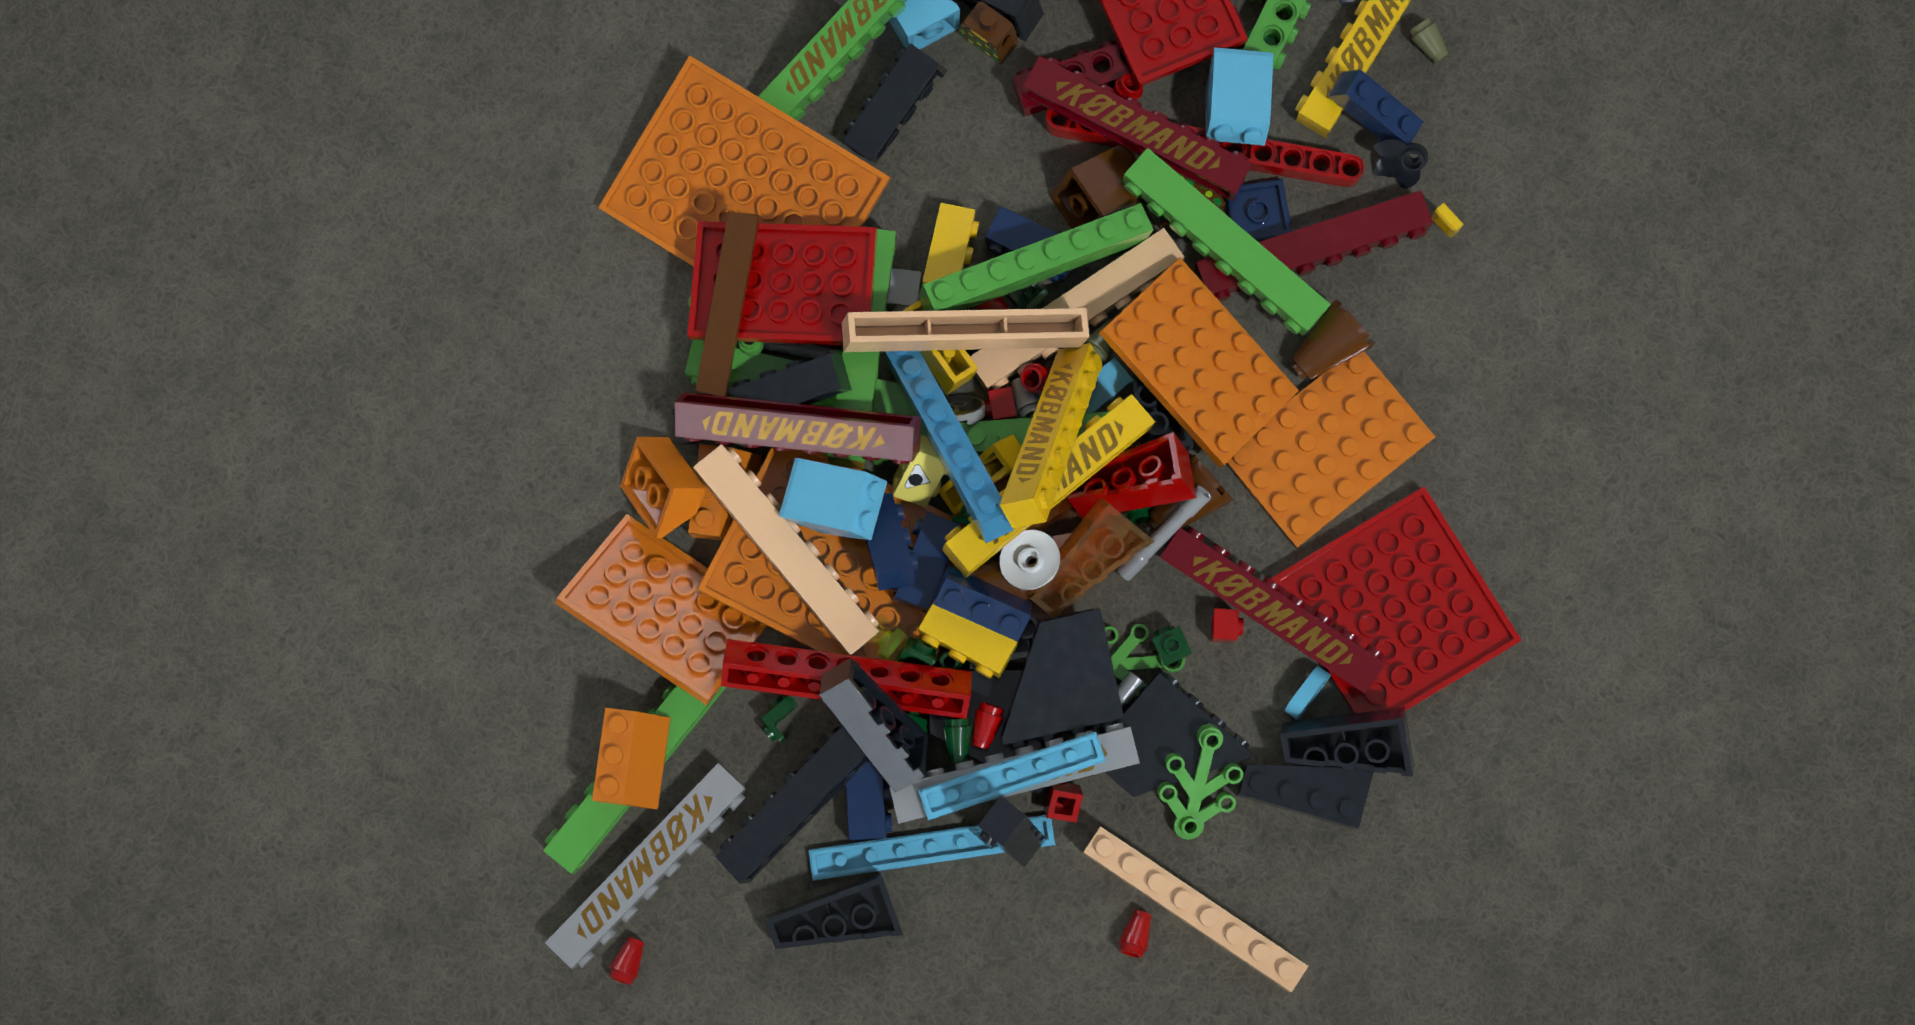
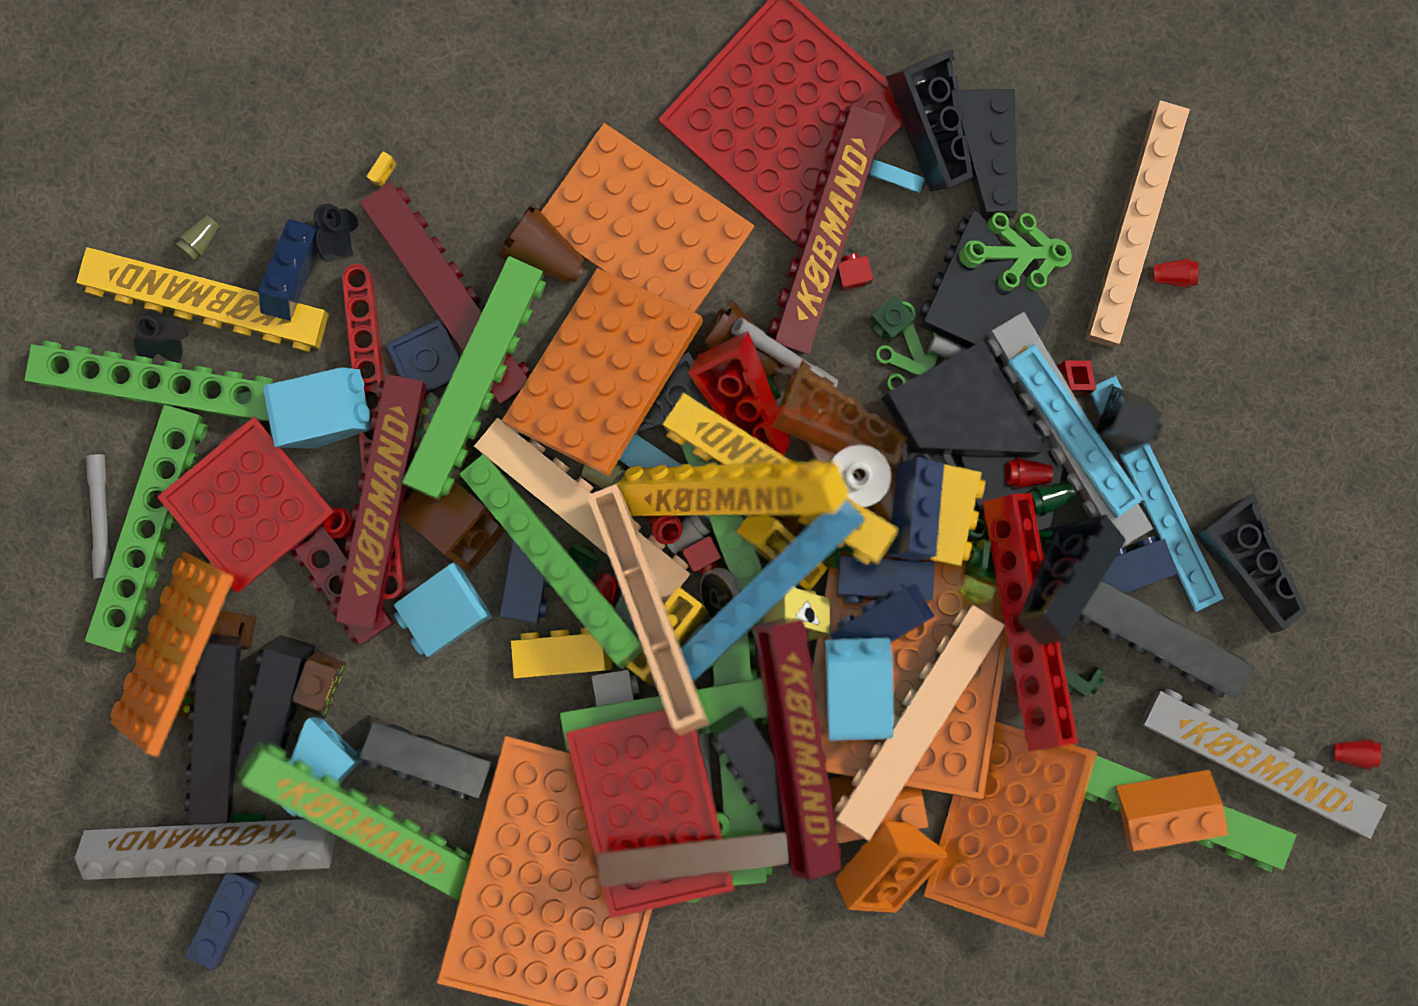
camera: 105 degrees left, 5 degrees up
(1022, 159) = (441, 610): none -> medium azure slope

